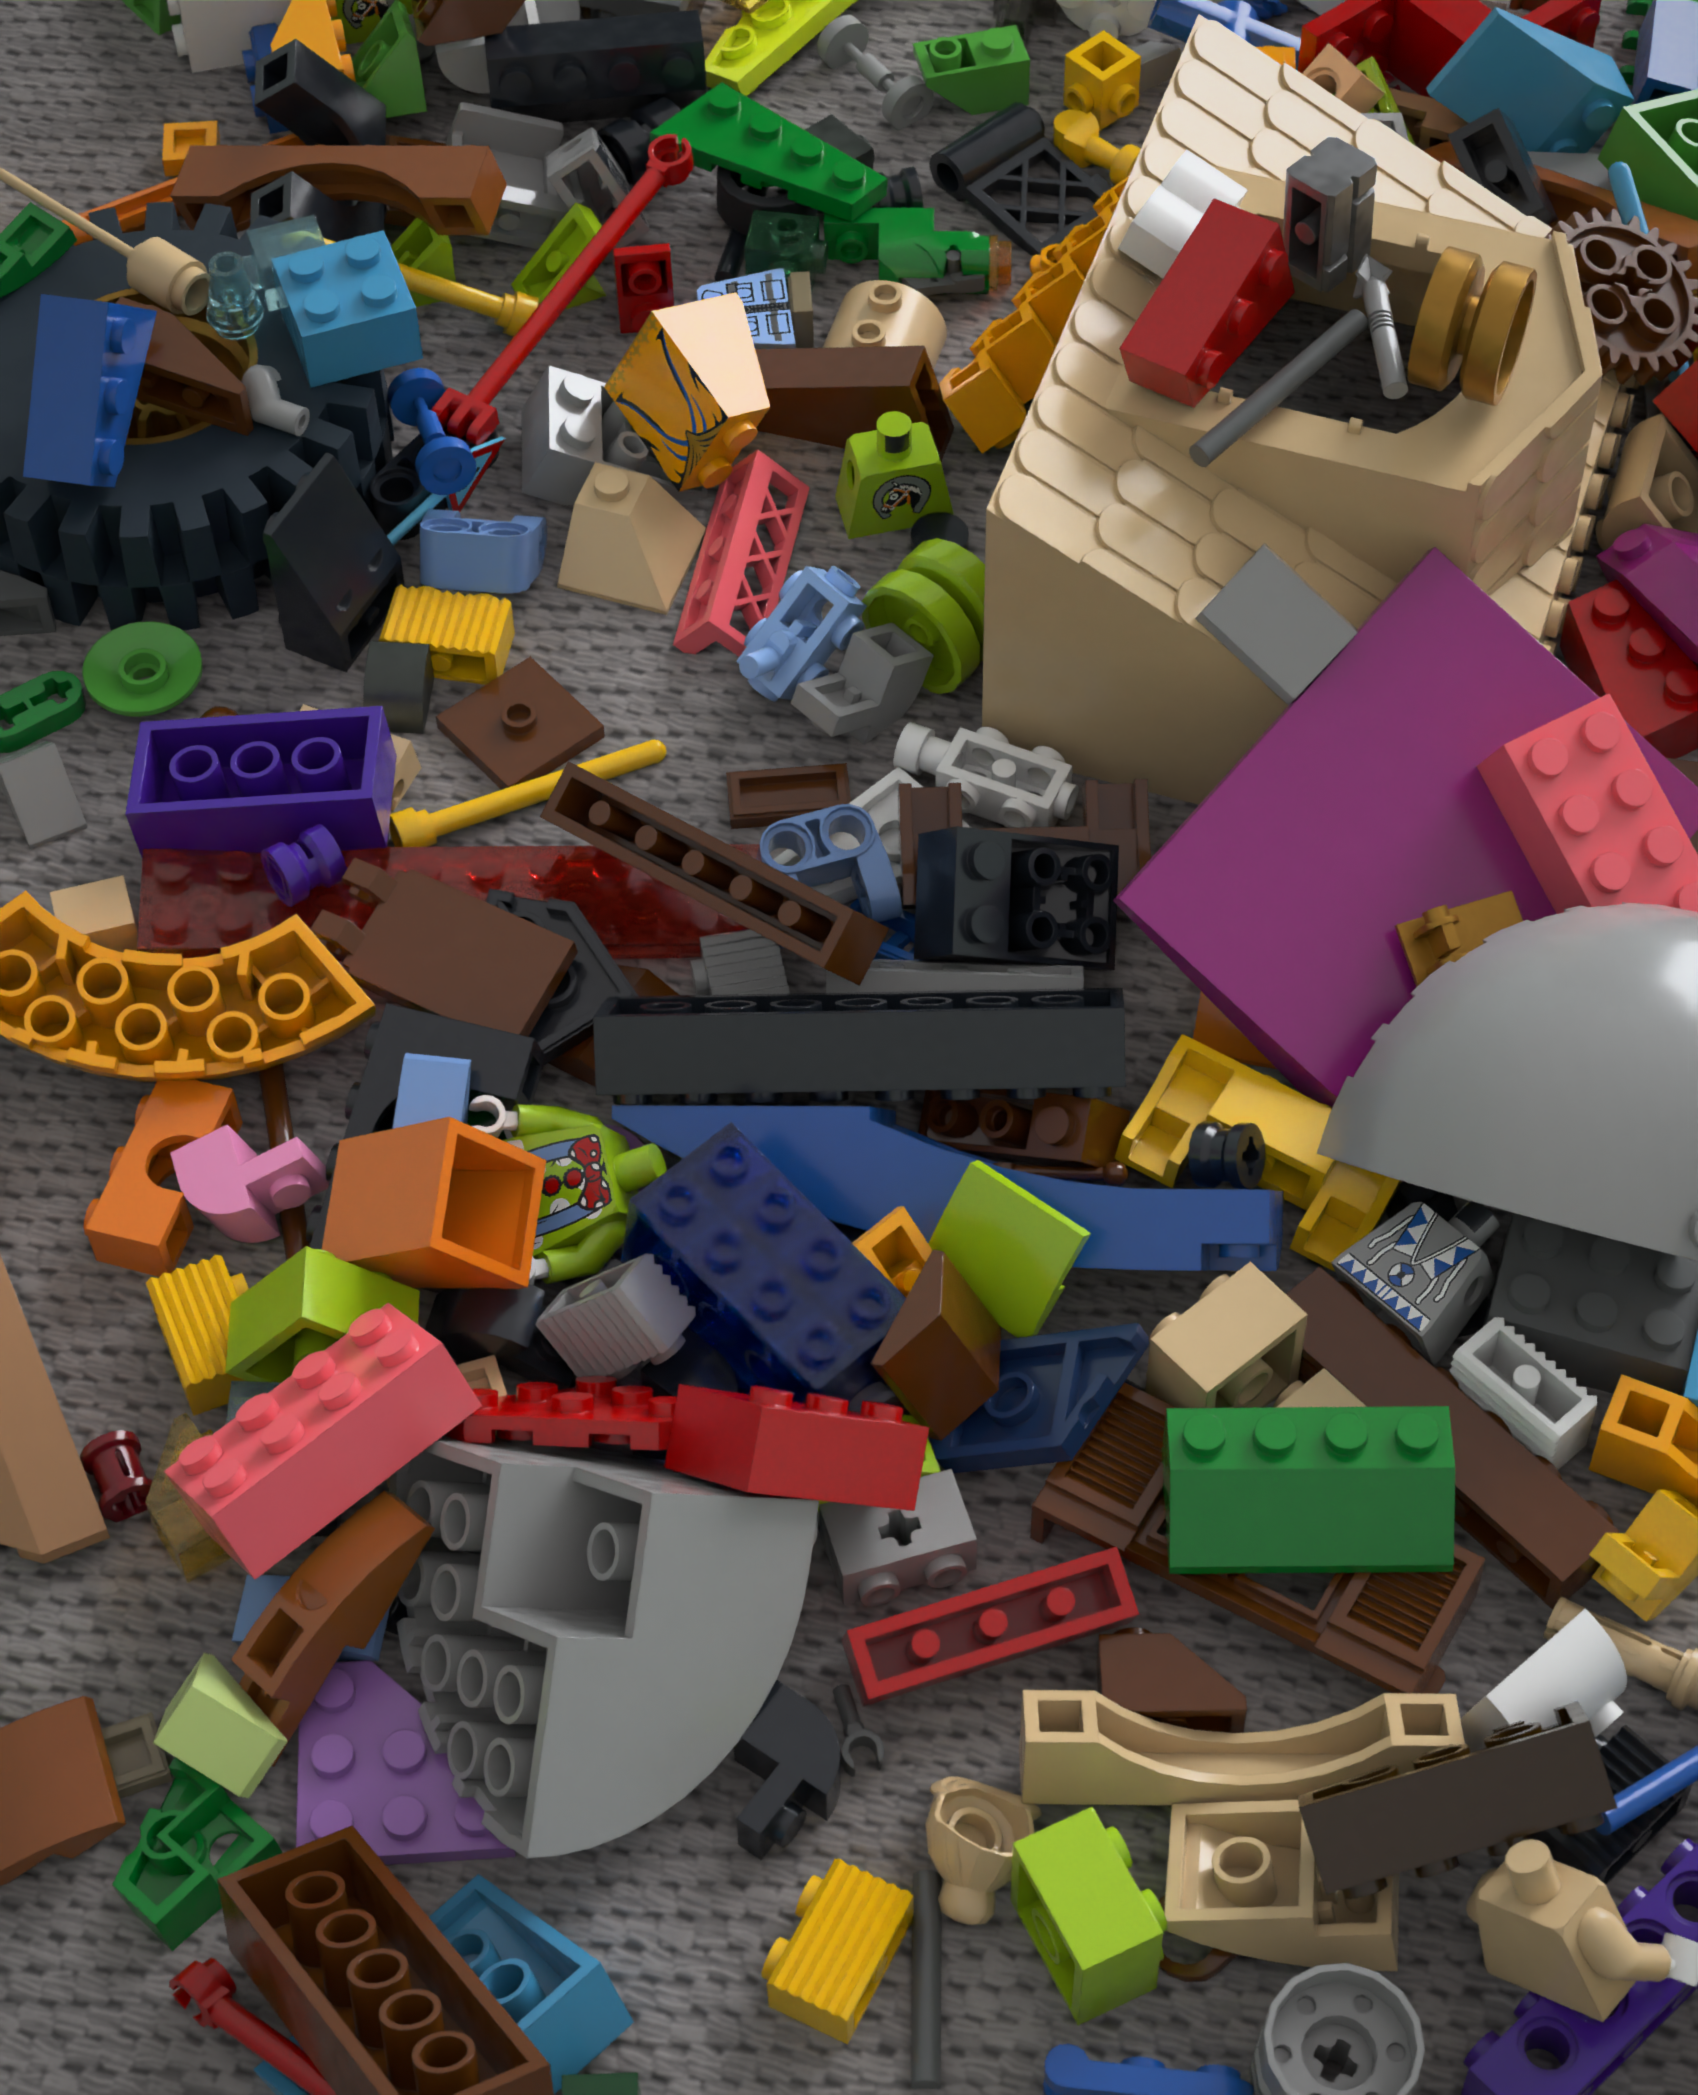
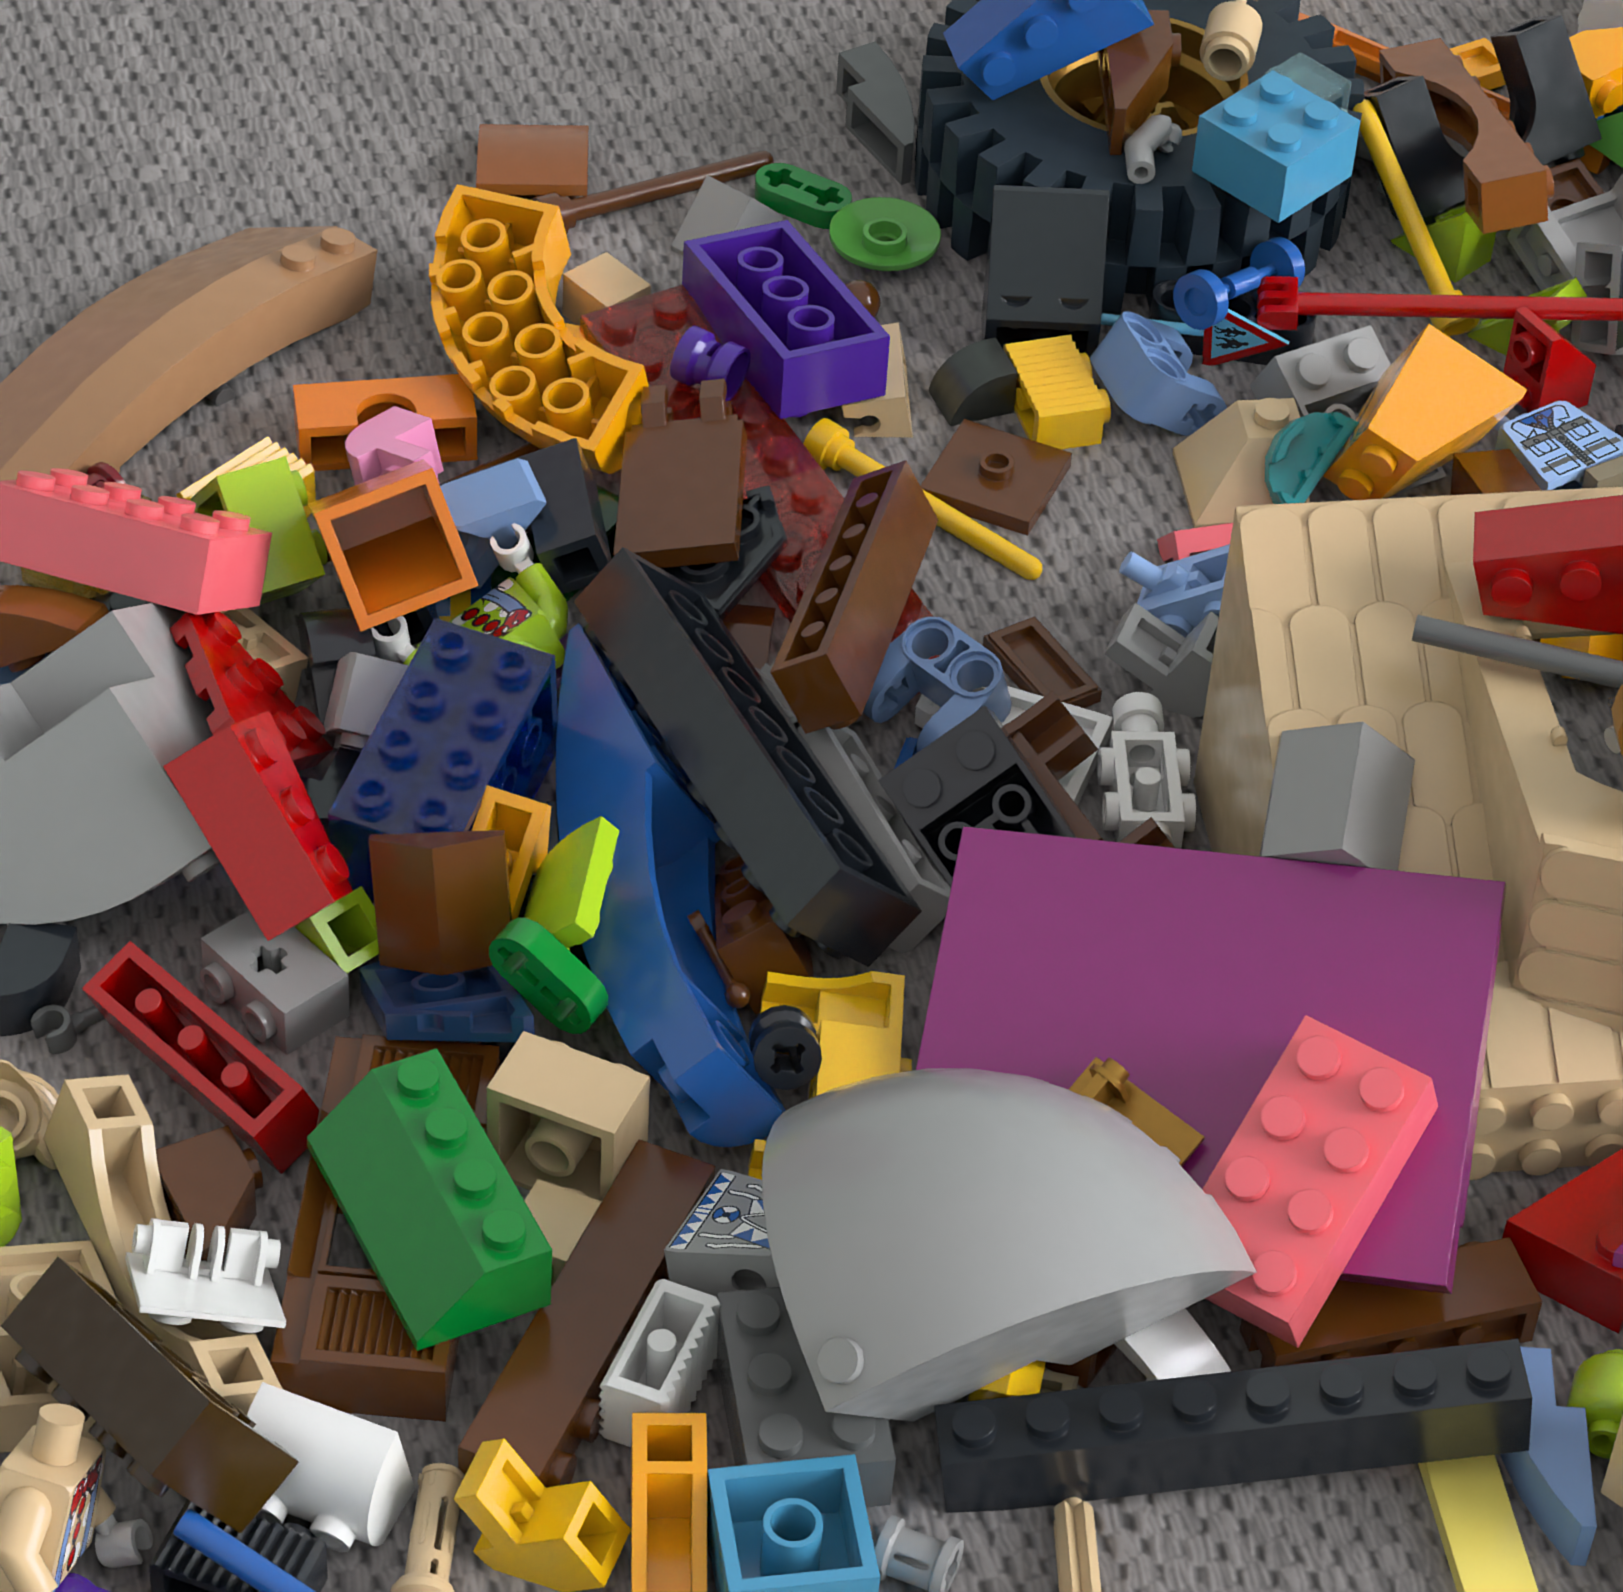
camera: 60 degrees right, 10 degrees down
(232, 299) = (1232, 69): clear light blue cone -> none
(669, 490) = (1303, 454): none -> teal tile
(1086, 1294) = (548, 975): none -> green beam
(1308, 1714) = (182, 1289): none -> white hinge

